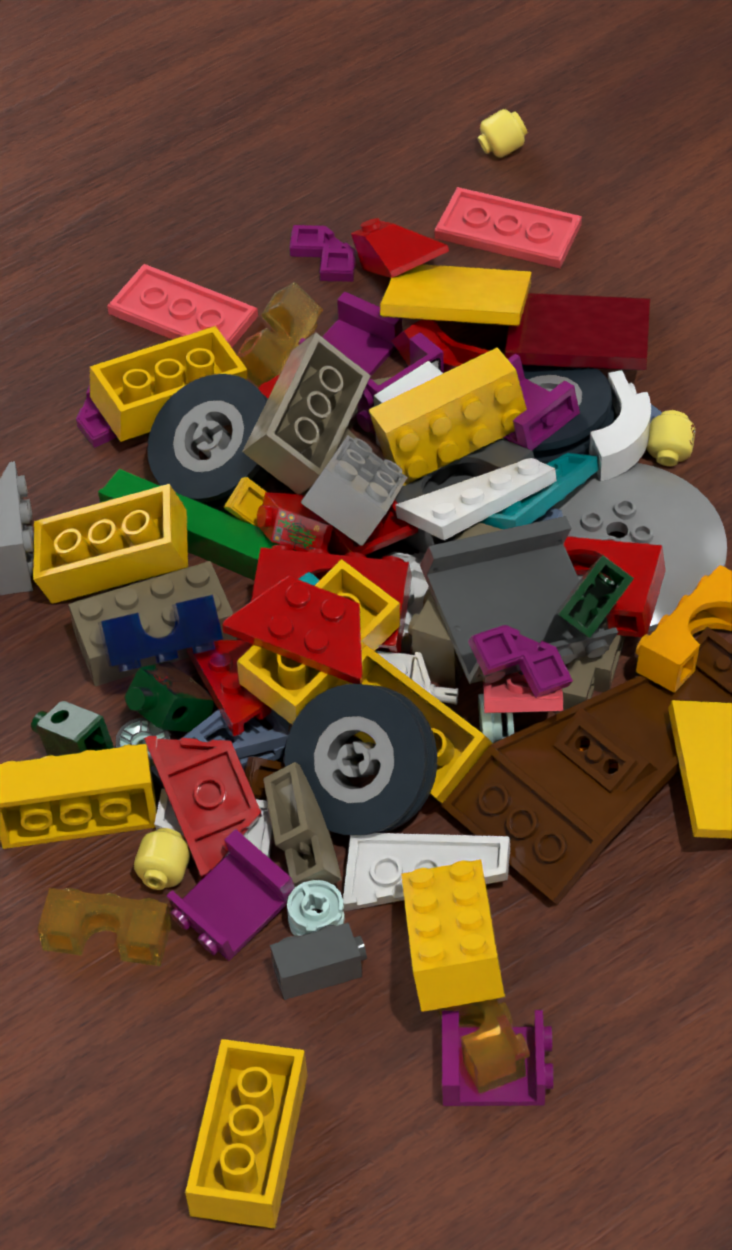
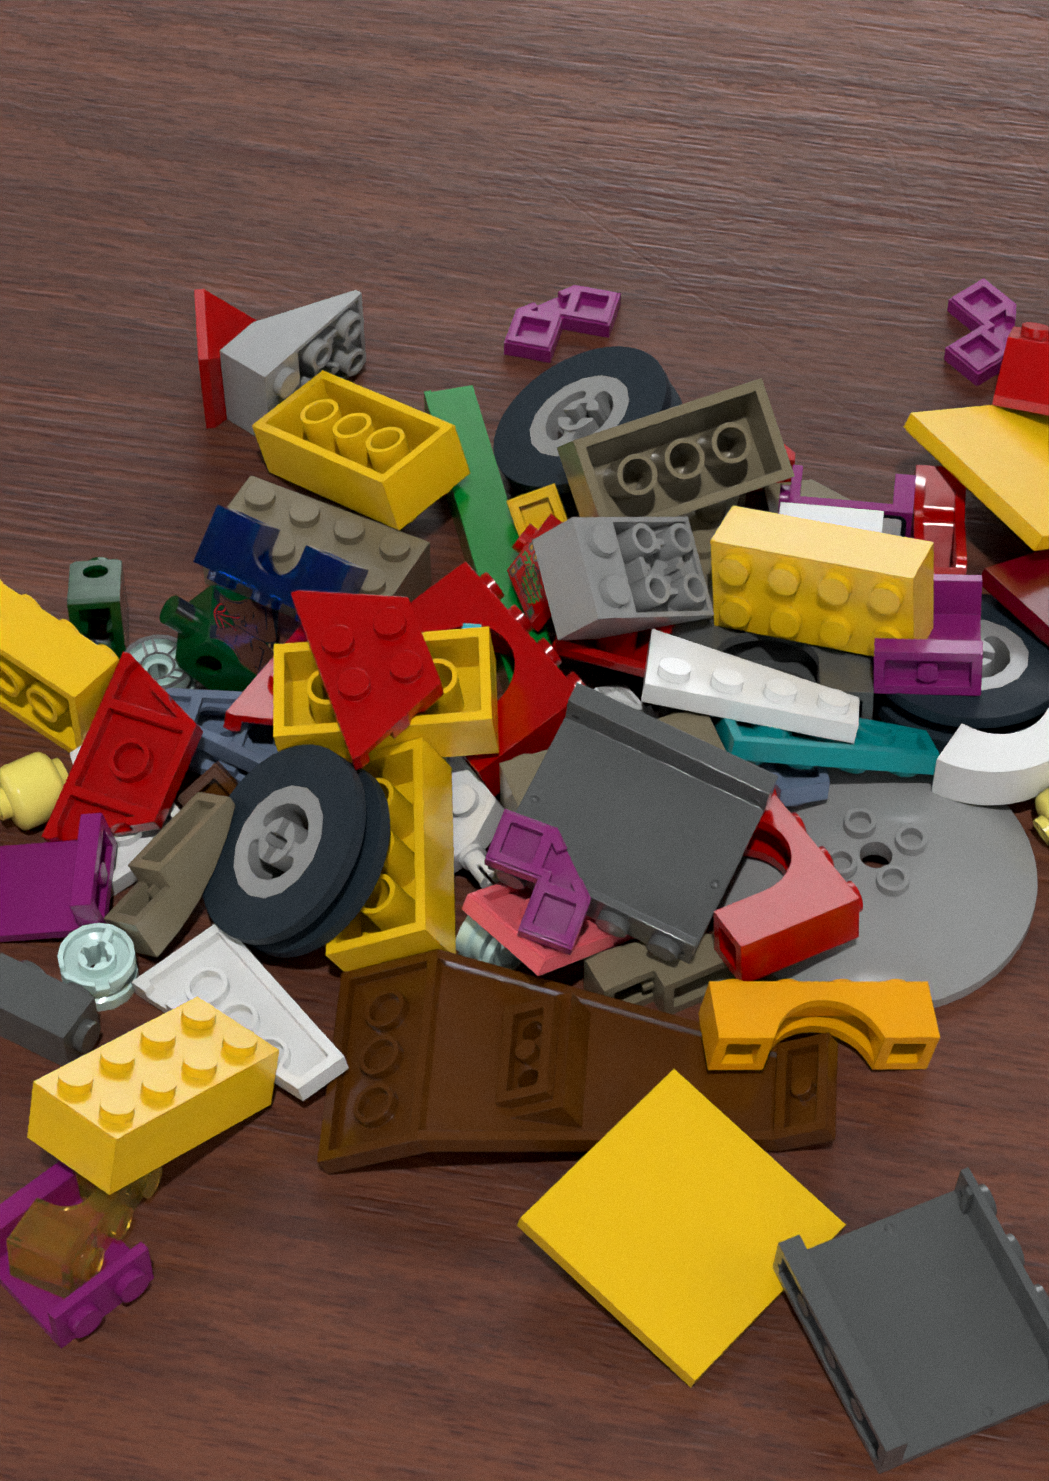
camera: 45 degrees right, 0 degrees up
(138, 385) = (595, 309): yellow brick -> none
(179, 306) = (761, 284): coral tile -> none
(291, 317) = (845, 369): clear yellow arch -> none
(362, 332) = (865, 452): magenta panel -> none
(594, 596) = (691, 880): dark green torso -> none

